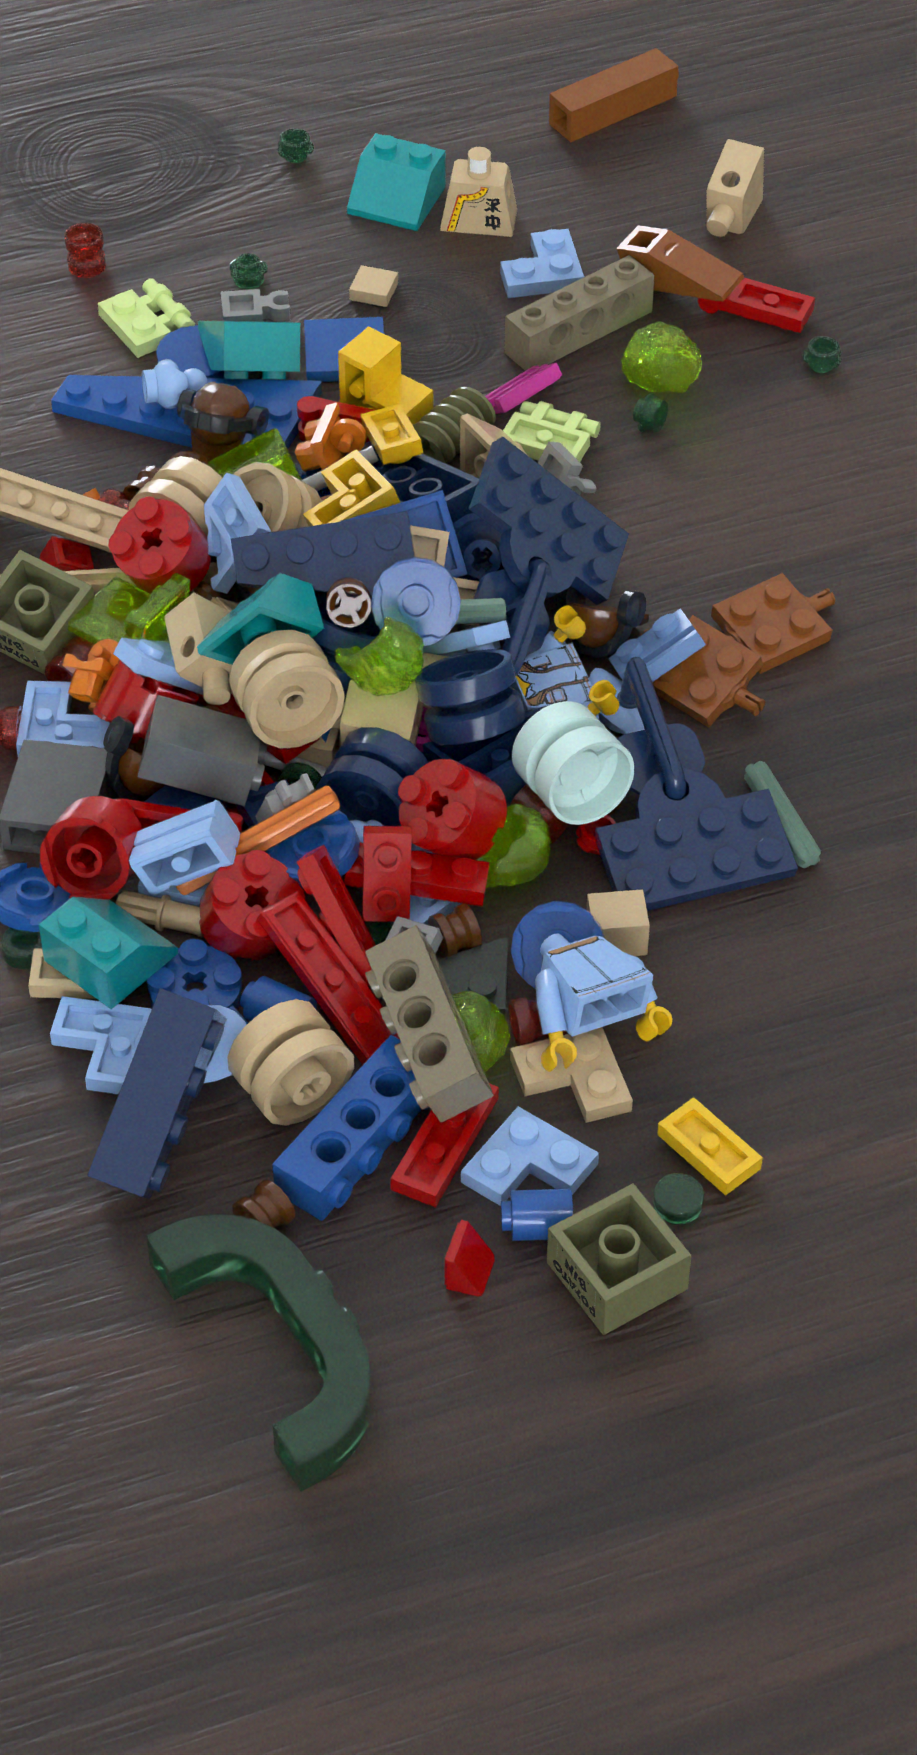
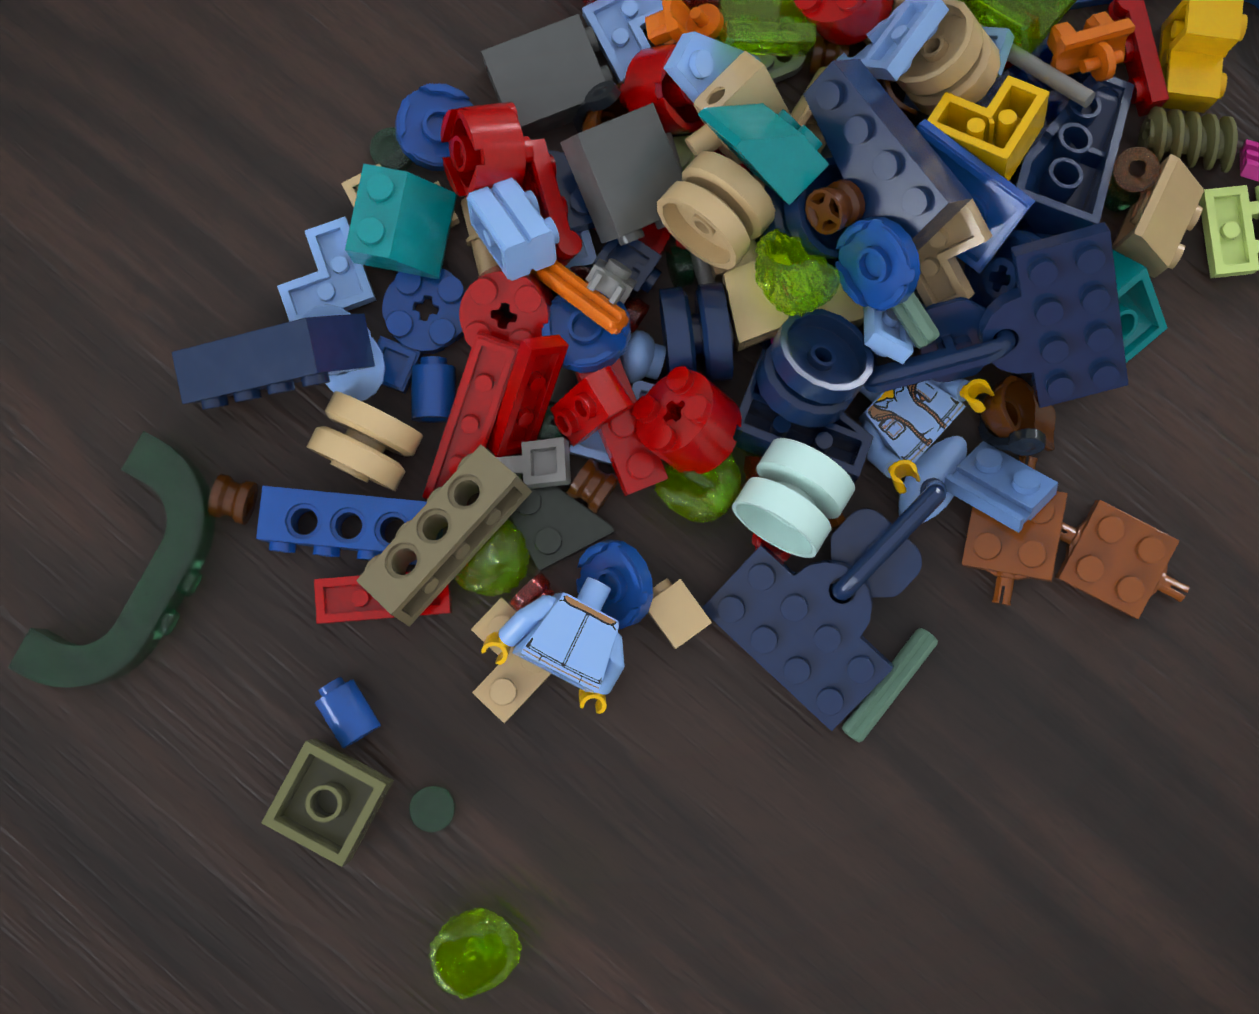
camera: 60 degrees right, 35 degrees up
(392, 434) = (1123, 100): yellow plate -> none
(455, 448) = (1126, 179): none -> clear orange cone
(468, 1261) = (277, 681): red slope -> none
(523, 1148) = (417, 663): light blue plate -> none
(565, 467) = (1189, 274): light grey plate -> none
(709, 1146) = (492, 809): yellow plate -> none
(839, 1205) = (474, 953): none -> clear neon green hair

